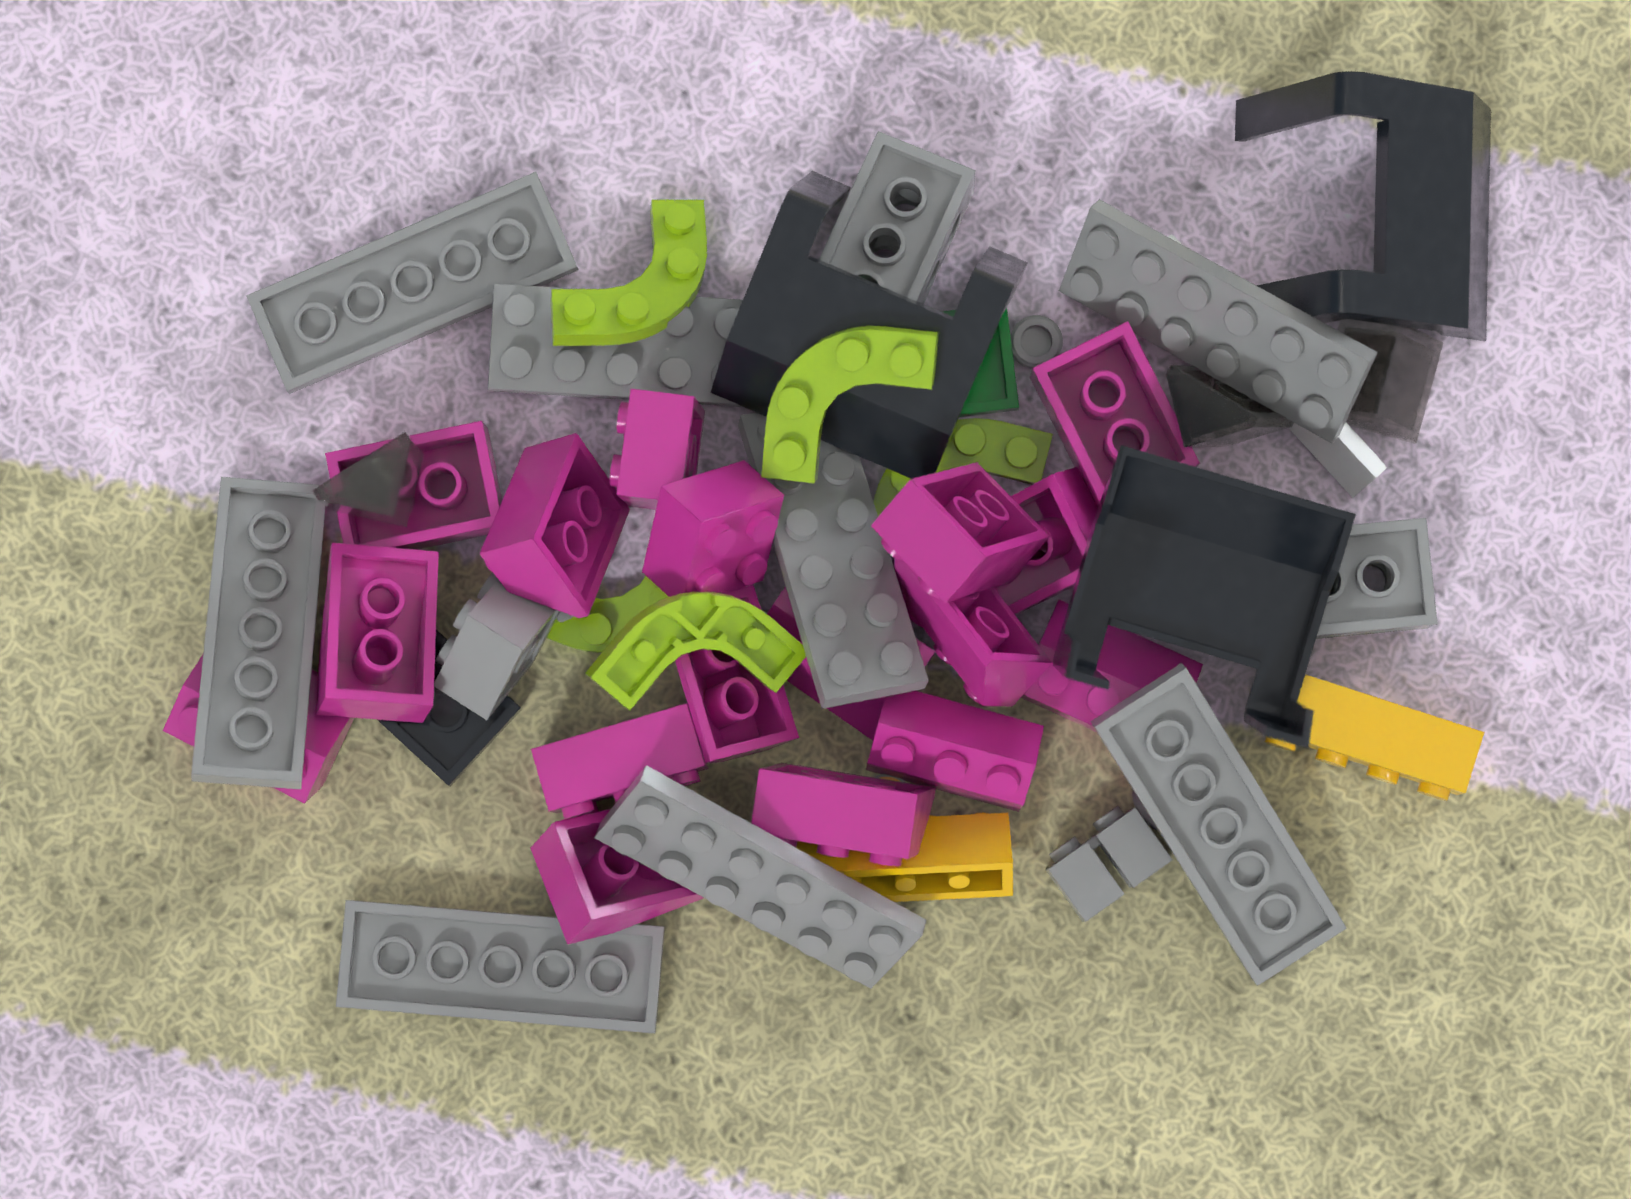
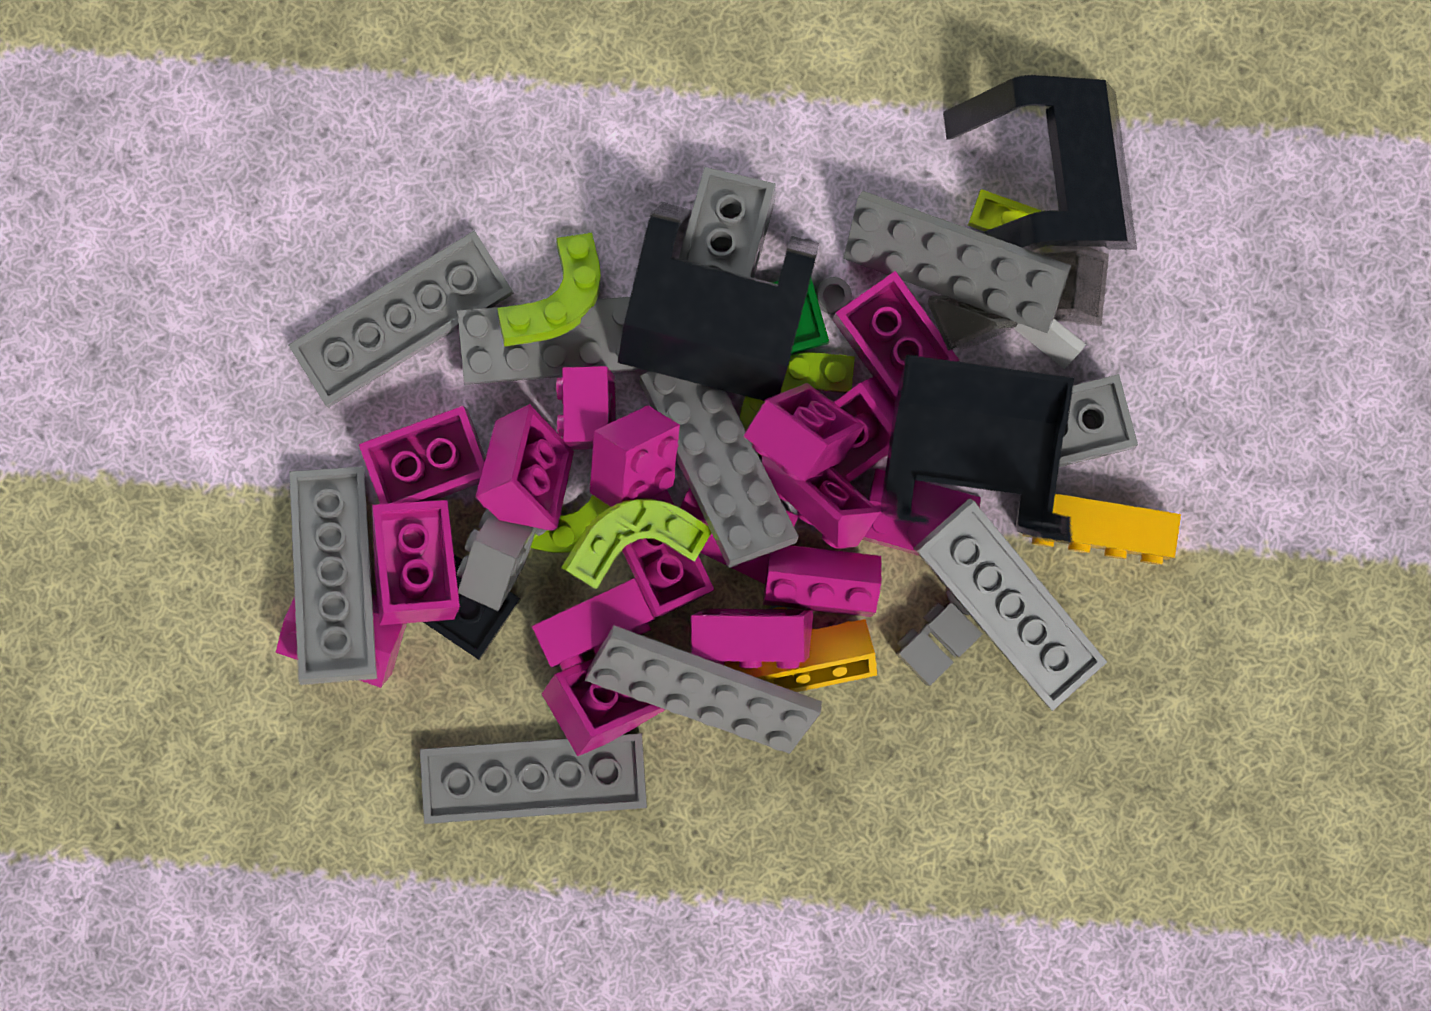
camera: 20 degrees left, 0 degrees up
(377, 485) = (397, 460): clear smoke slope -> none
(825, 371) = (697, 333): lime plate -> none
(1289, 255) = (995, 210): none -> neon yellow plate

